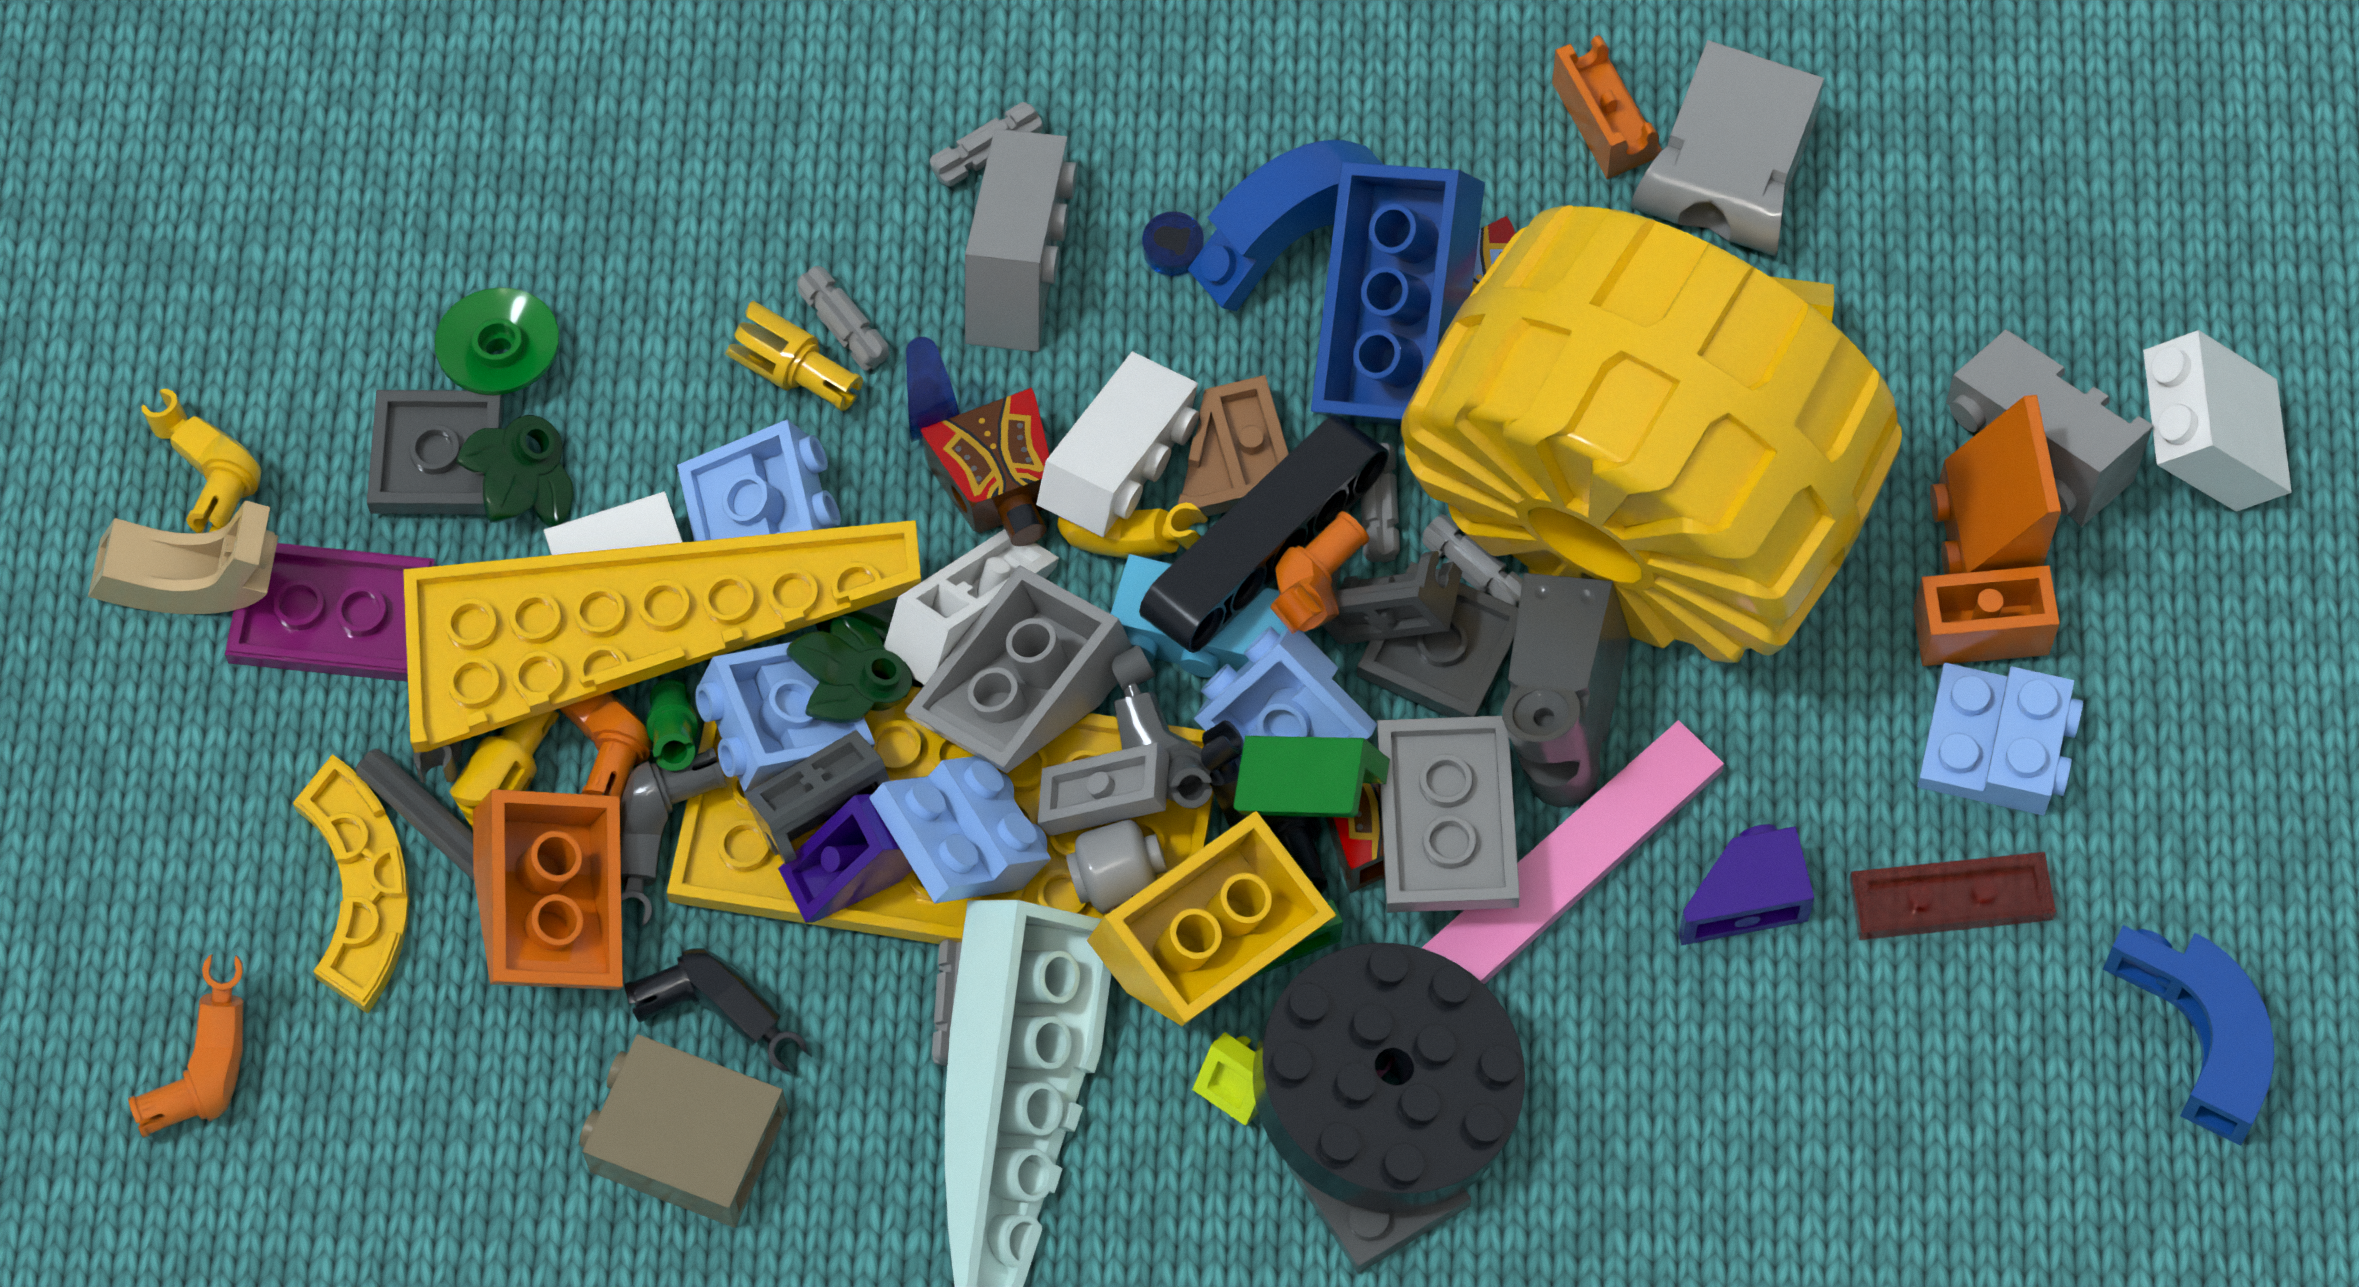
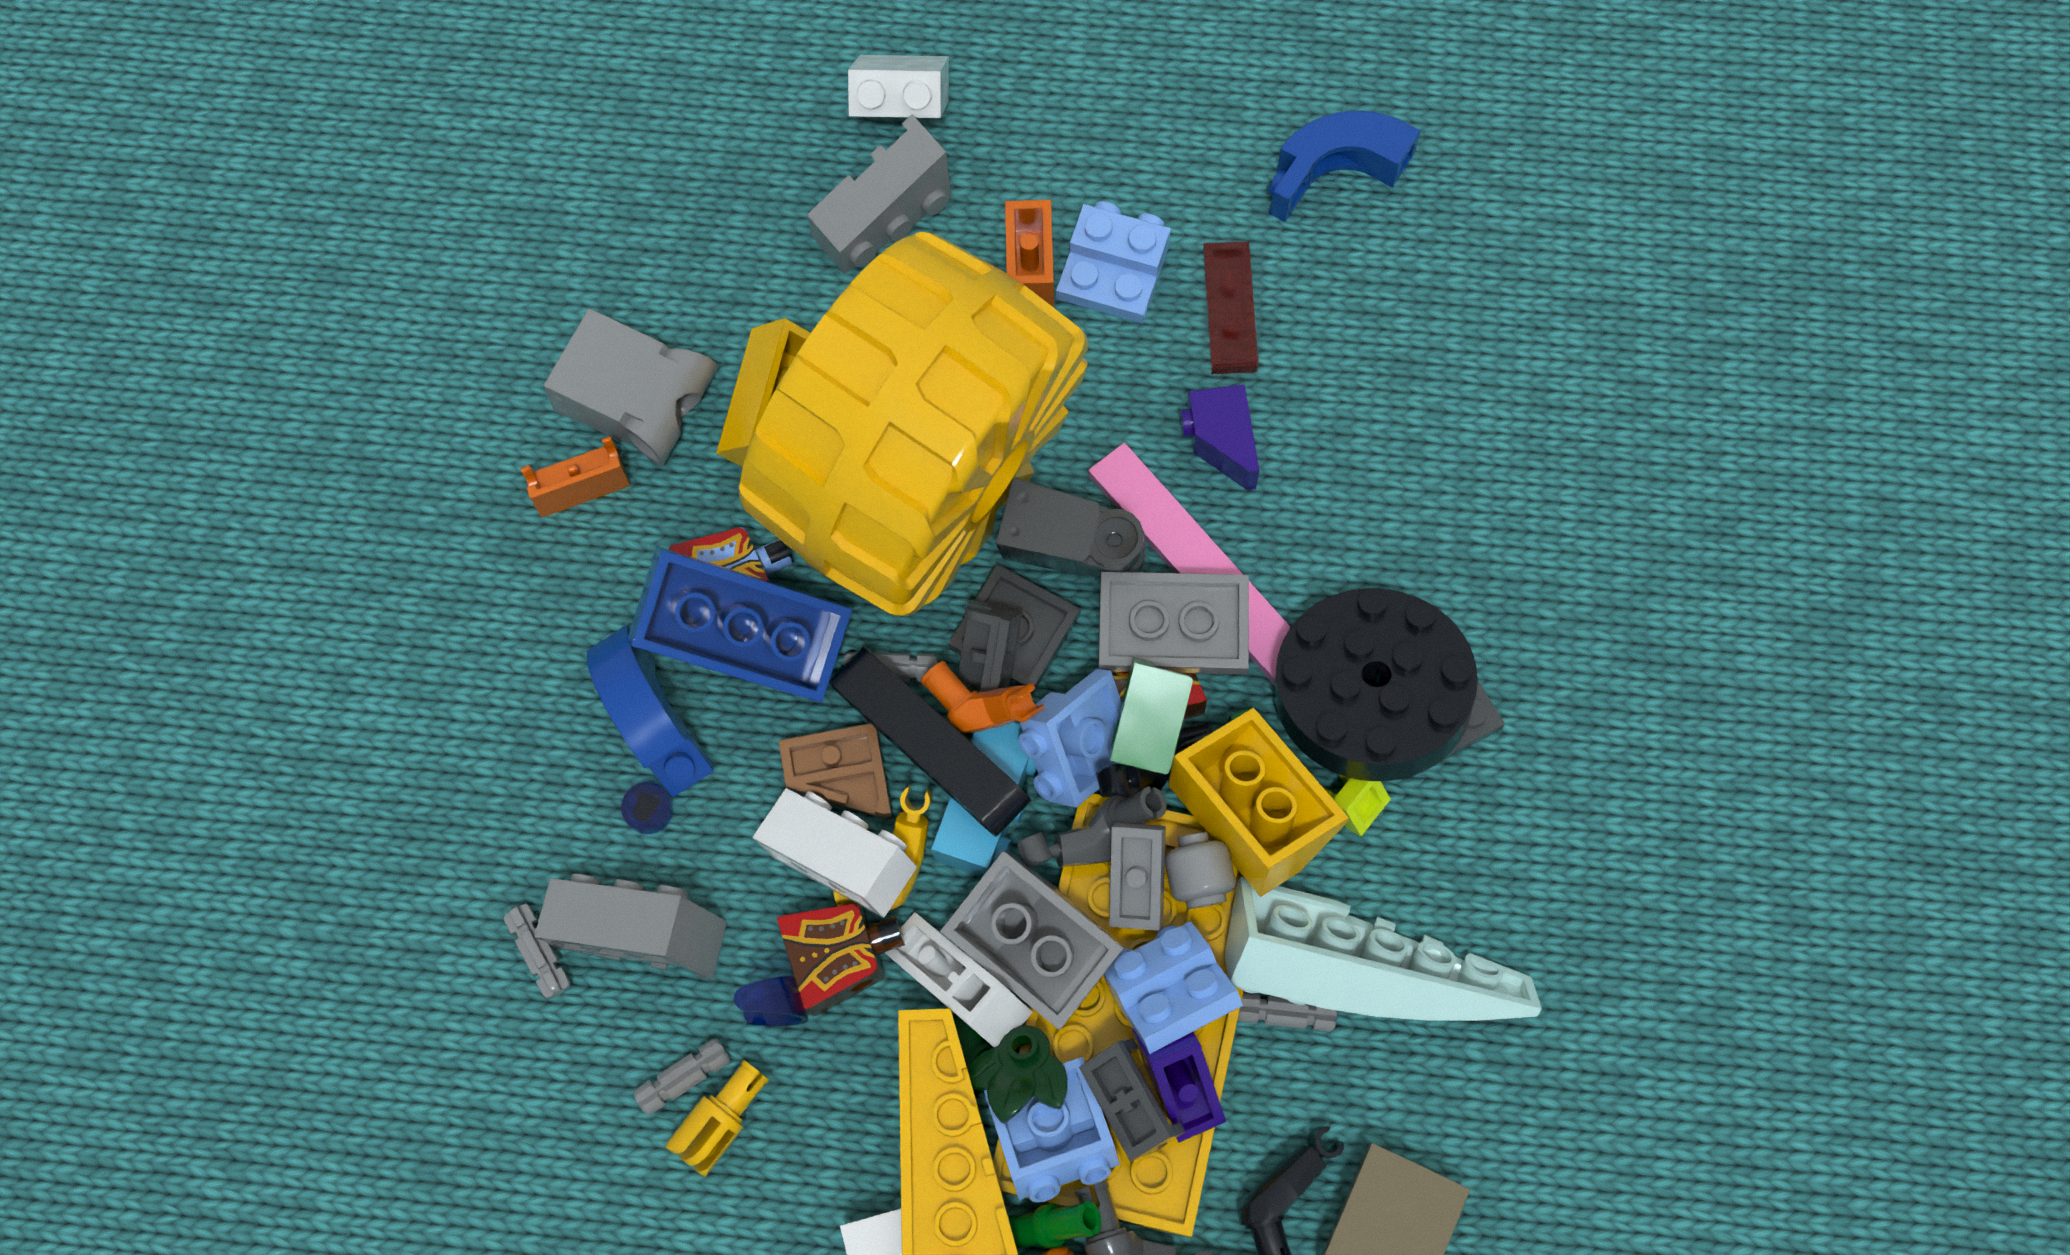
camera: 85 degrees left, 5 degrees up
(759, 486) = (847, 1150): light blue plate -> none
(1477, 566) = (950, 602): light grey axle -> none
(1998, 495) = (955, 205): orange slope -> none

